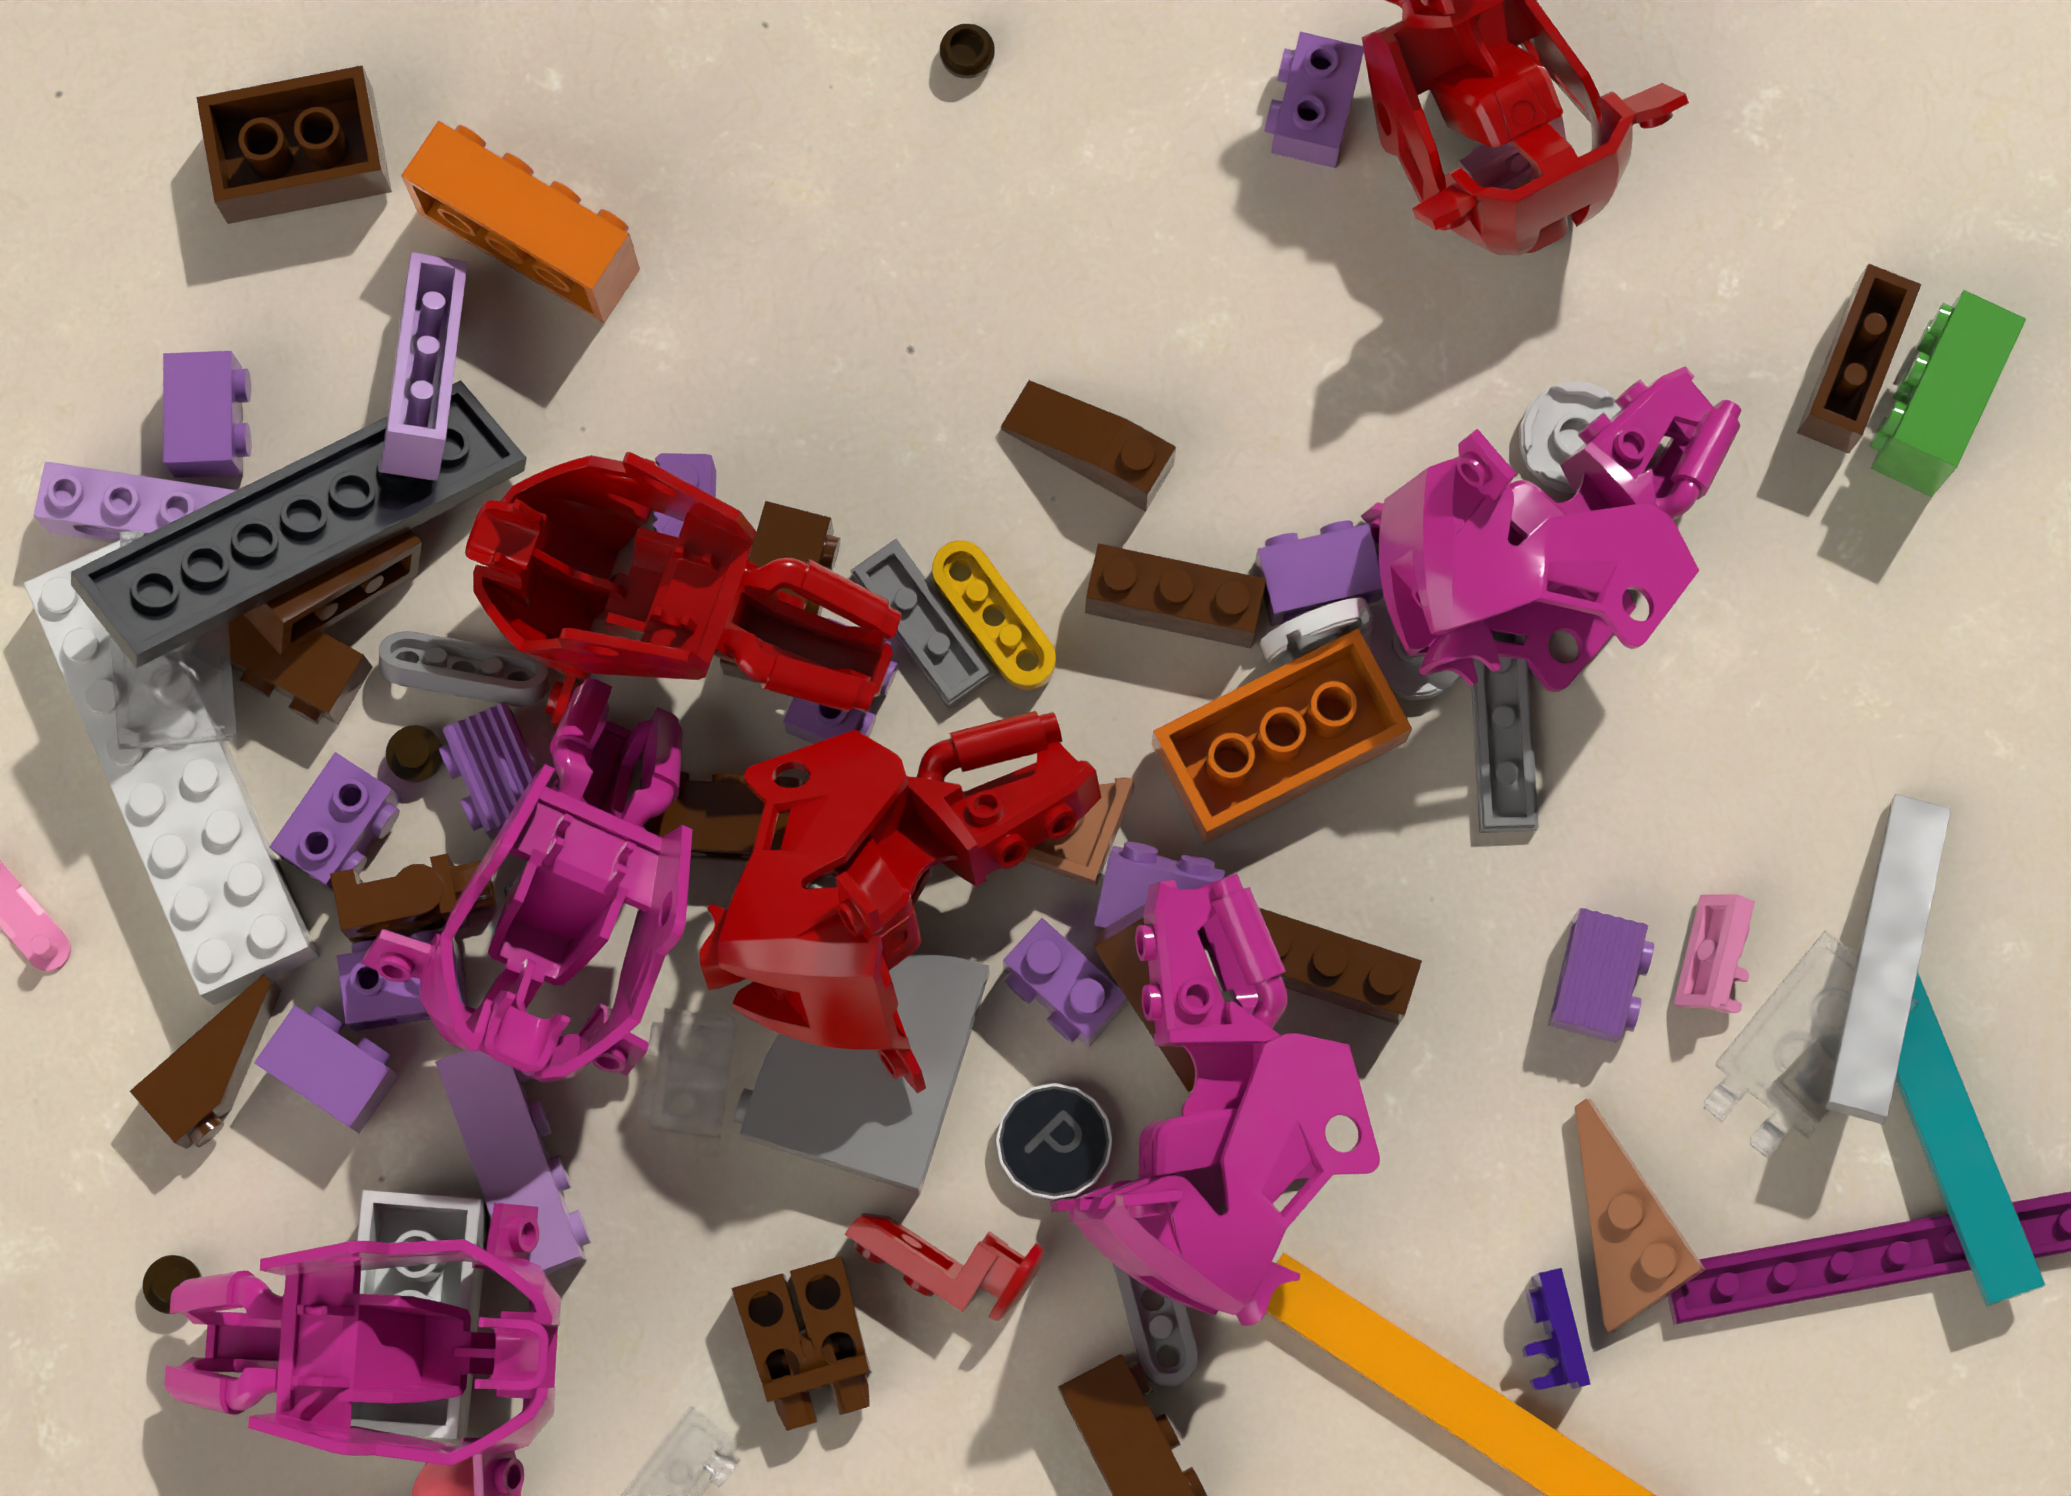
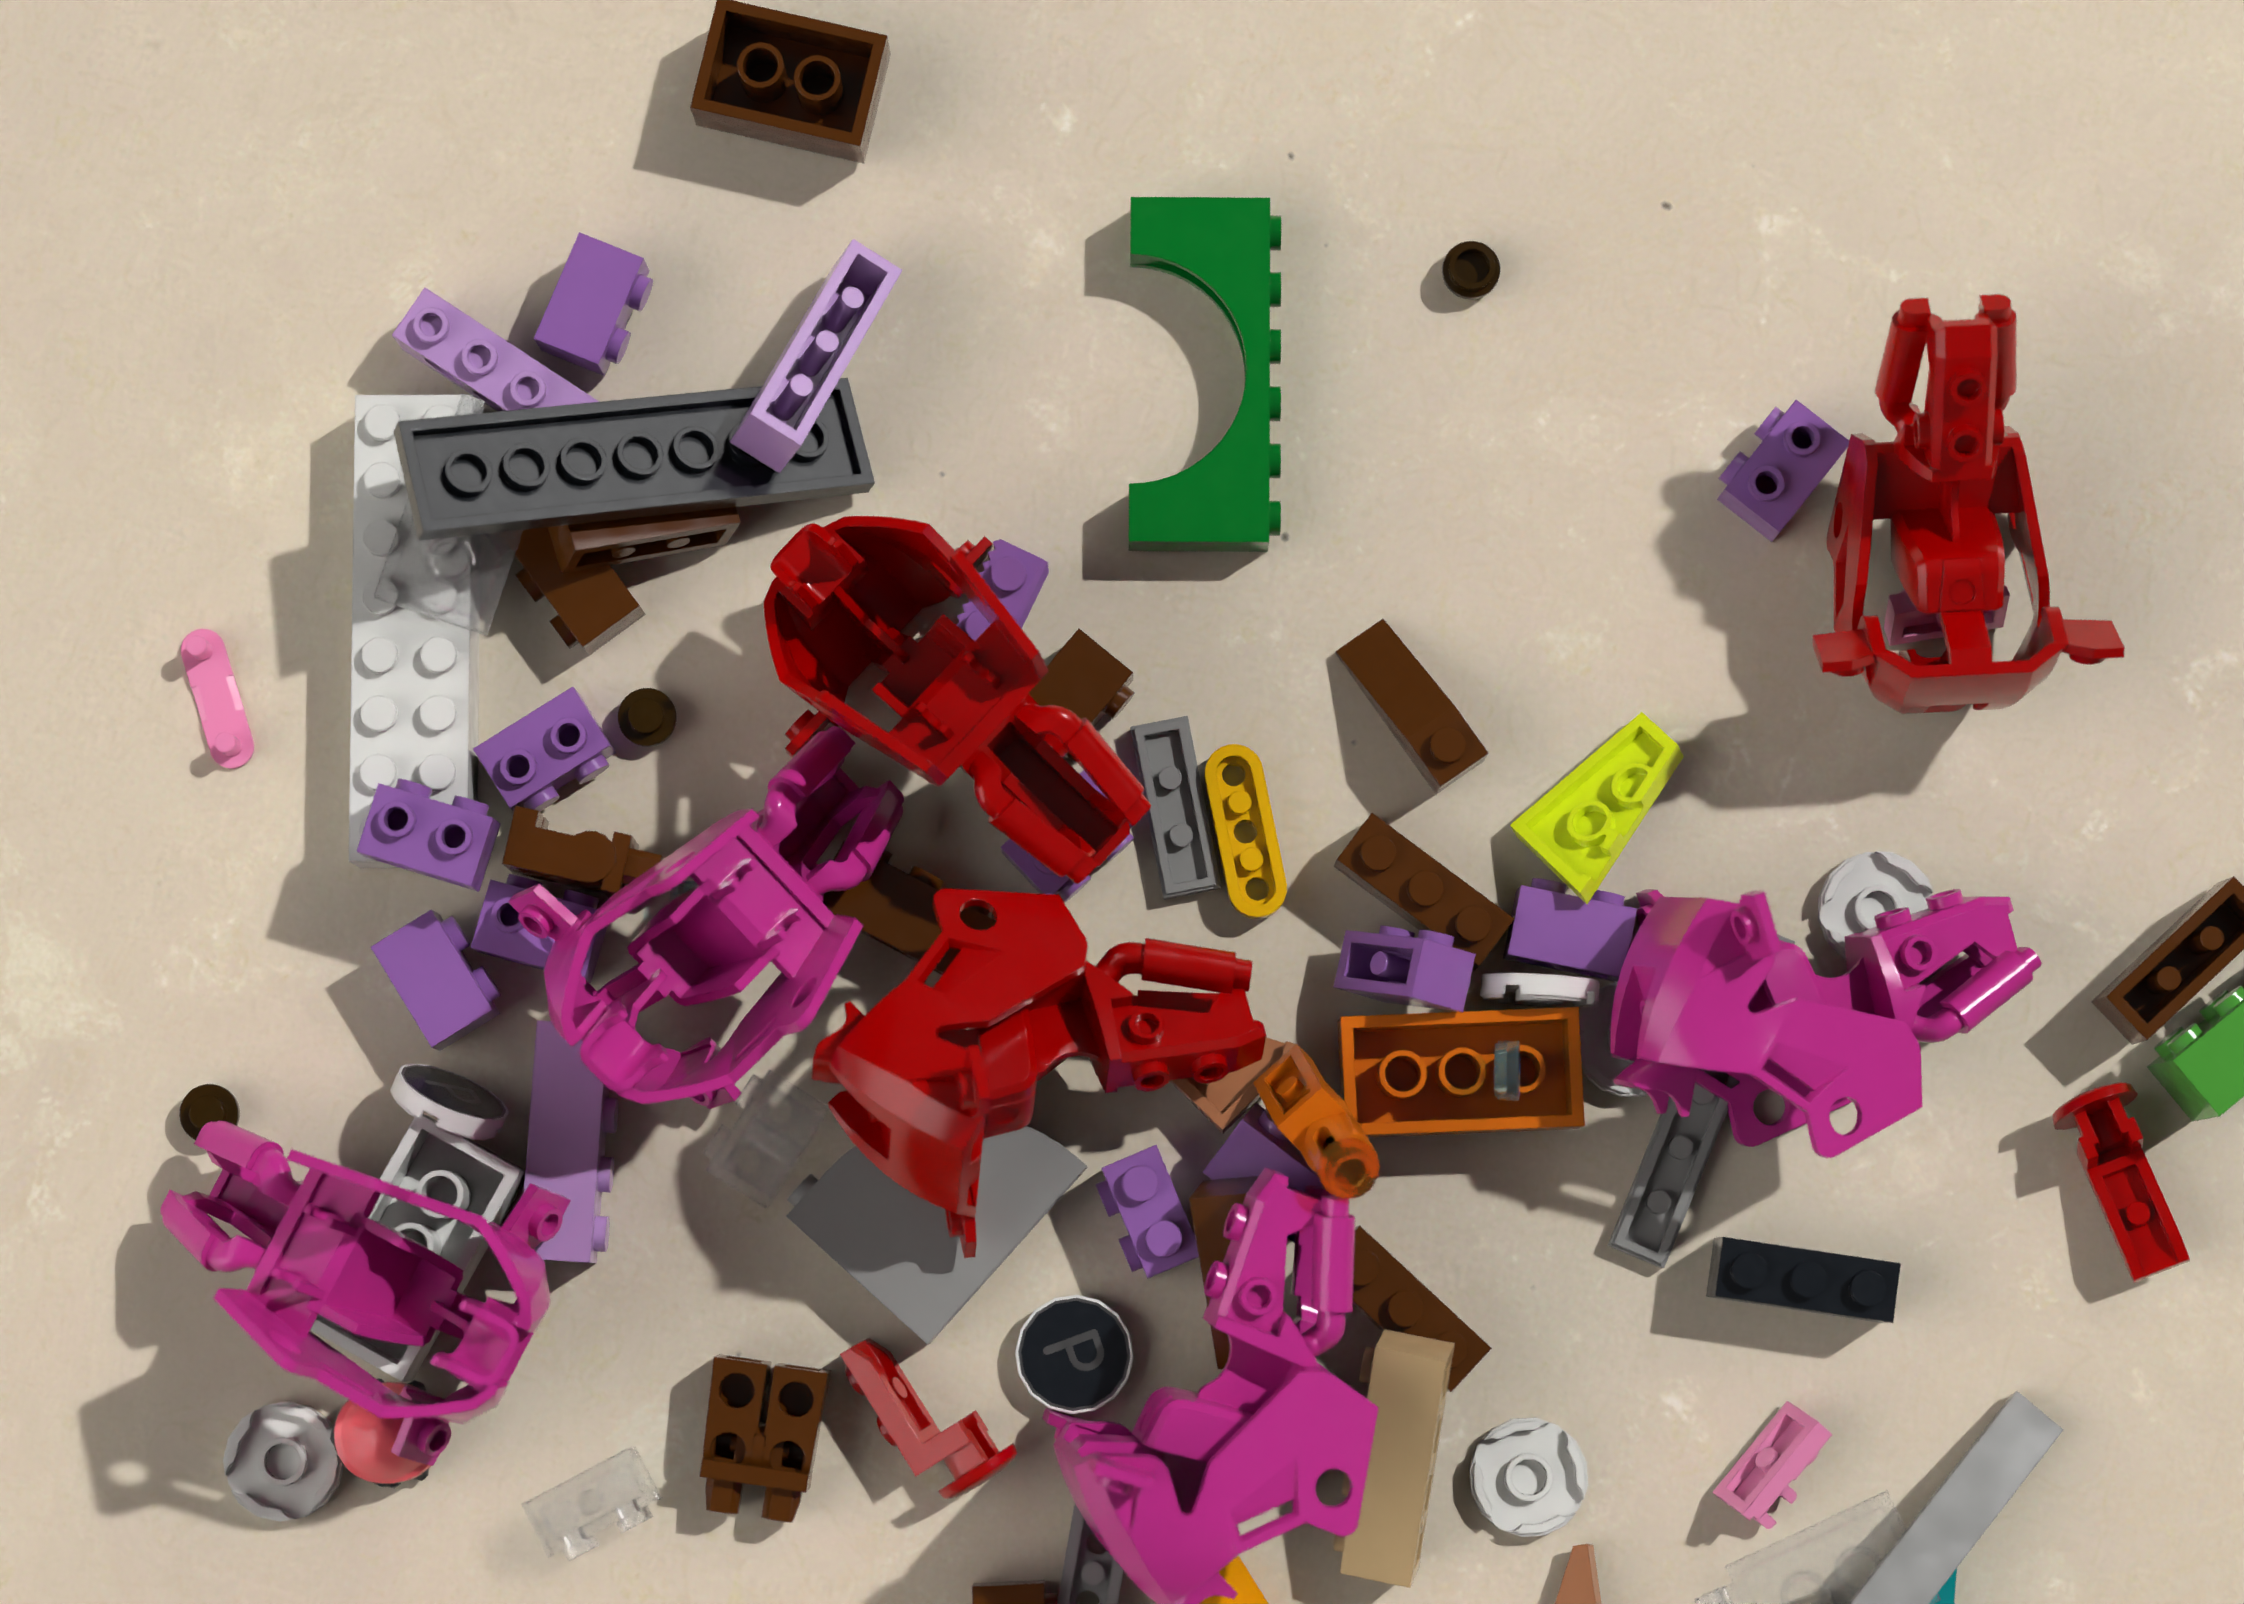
camera: 25 degrees right, 5 degrees up
(204, 1075) = (324, 932): reddish brown slope -> none
(263, 934) = (429, 835): none -> medium lavender brick
(388, 1168) = (456, 1101): none -> tile
(462, 668) = (722, 656): light grey plate -> none
(493, 764) = (715, 766): medium lavender brick -> none
(522, 219) = (971, 253): orange brick -> none
(746, 130) = (1225, 254): none -> green arch
(1180, 827) = (1319, 1124): none -> orange plate
(1190, 665) = (1405, 968): none -> medium lavender brick
(1293, 453) = (1599, 805): none -> neon yellow wing
(1322, 707) = (1507, 1070): none -> clear light blue tile
(1369, 1020) = (1410, 1387): none -> tan brick
(1506, 1065) = (1528, 1477): none -> white tile
(1600, 976) = (1655, 1436): medium lavender brick -> none
(1664, 780) = (1803, 1279): none -> black brick
(1897, 568) = (2123, 1179): none -> red piece

